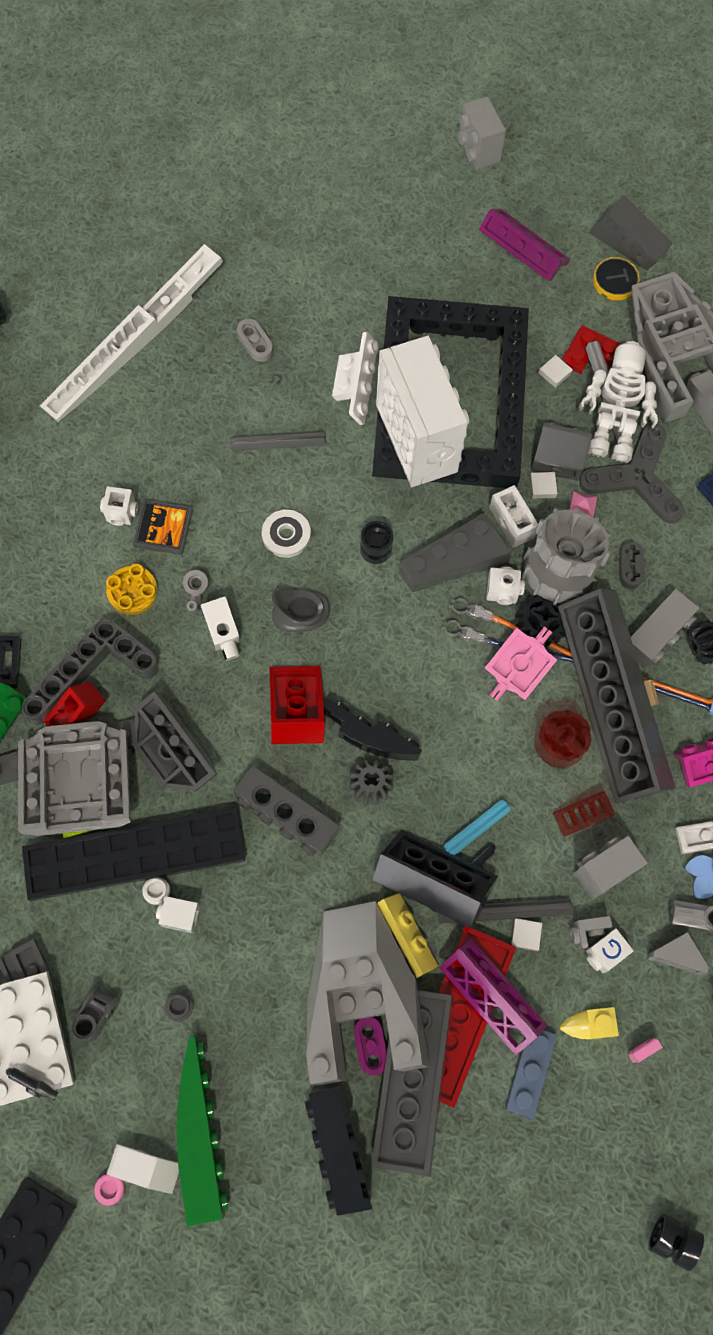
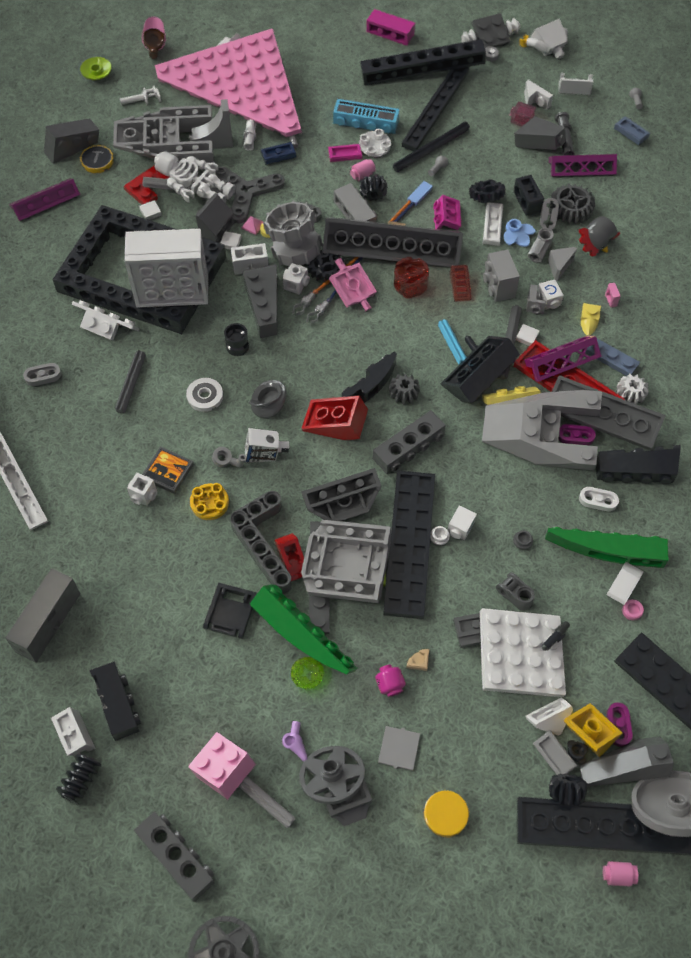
camera: 70 degrees left, 10 degrees down
(271, 1102) = (598, 498): none -> white plate
(486, 1120) = (632, 389): none -> white gear

